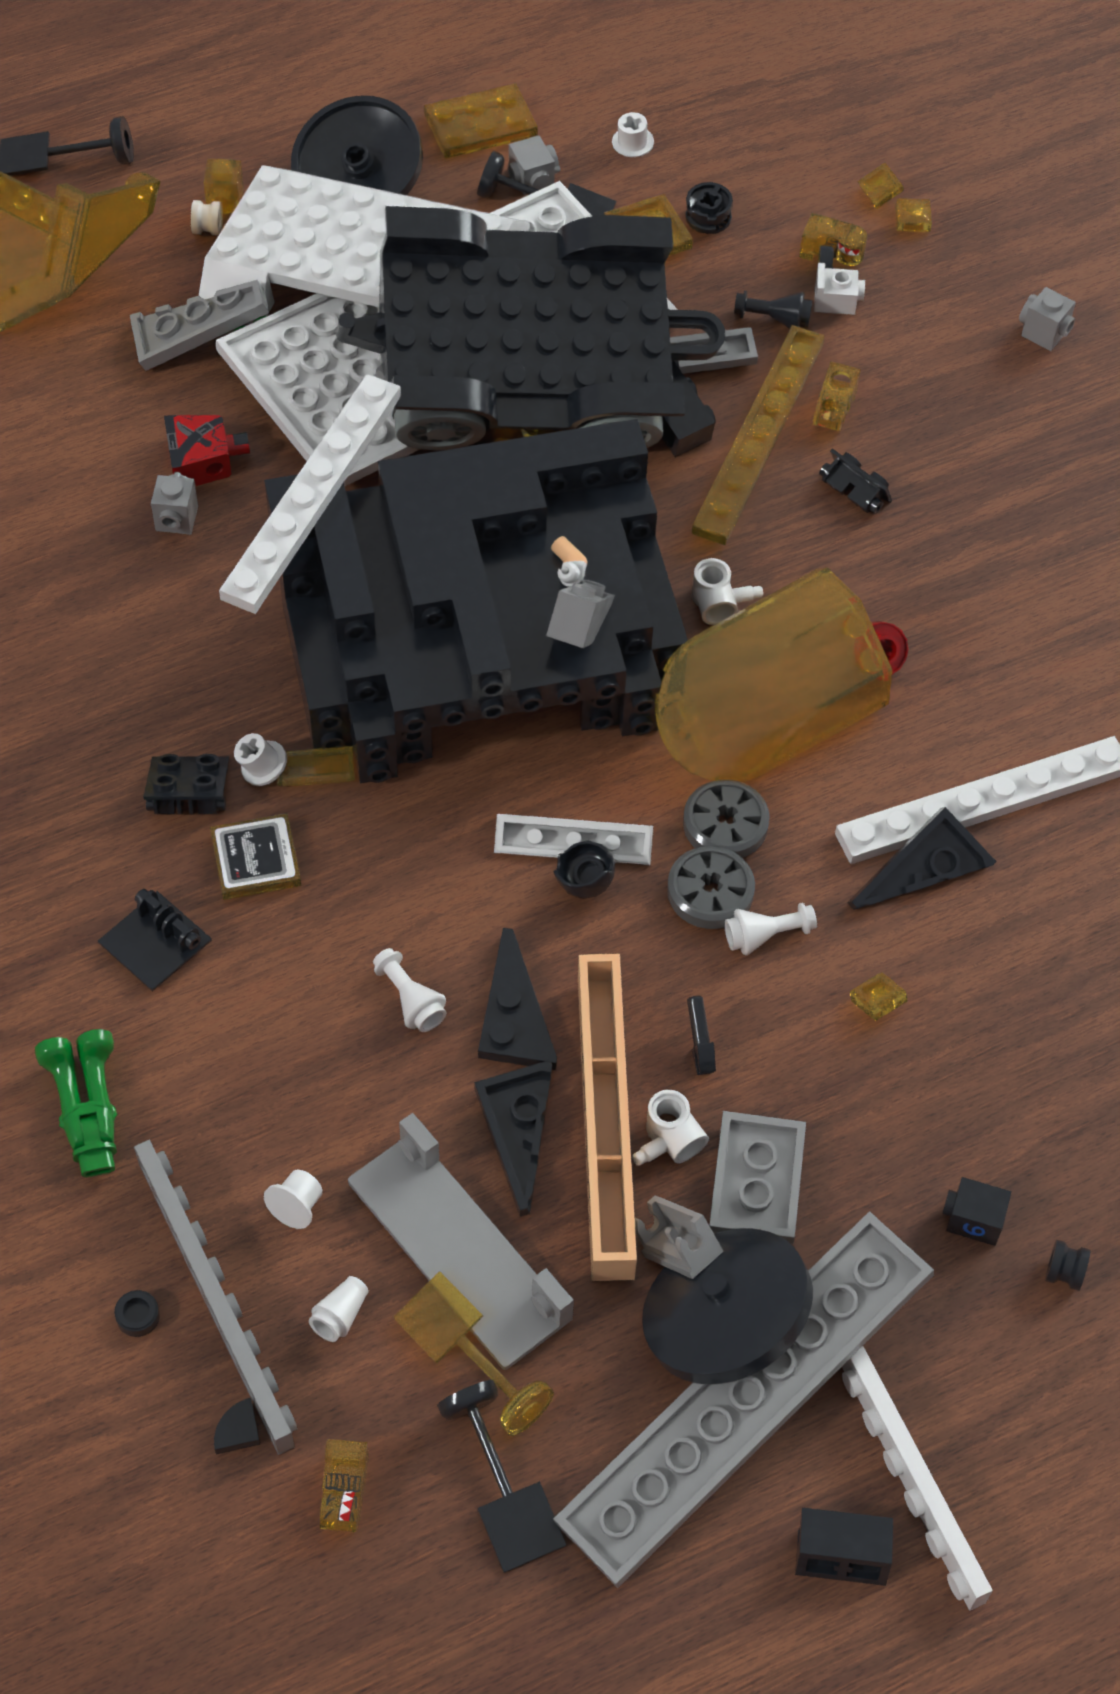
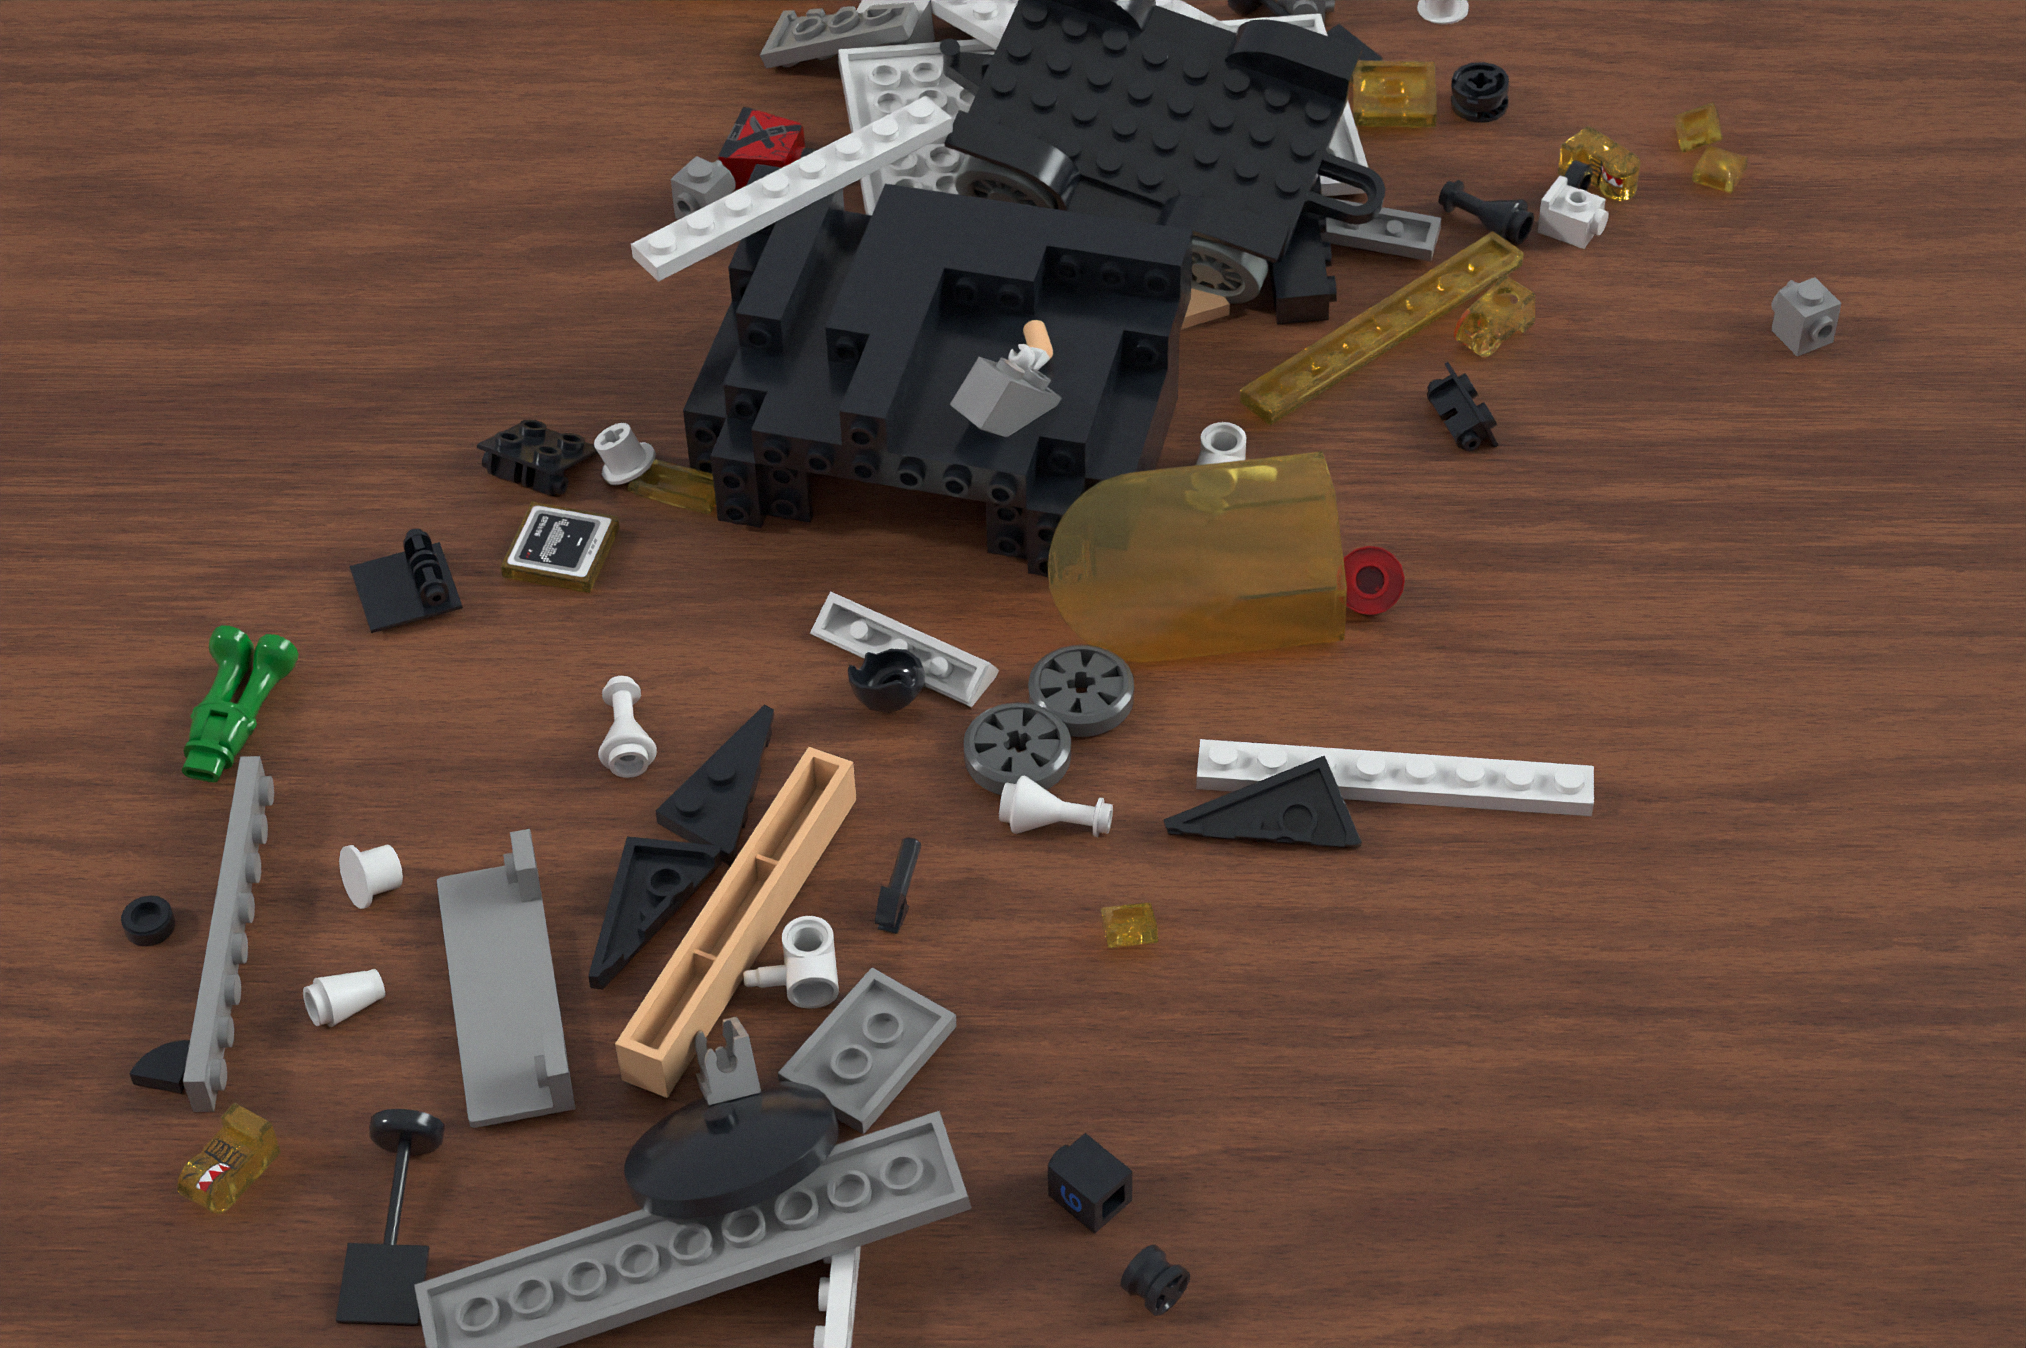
camera: 30 degrees right, 10 degrees down
(440, 1319) = (430, 1051): clear yellow piece -> none

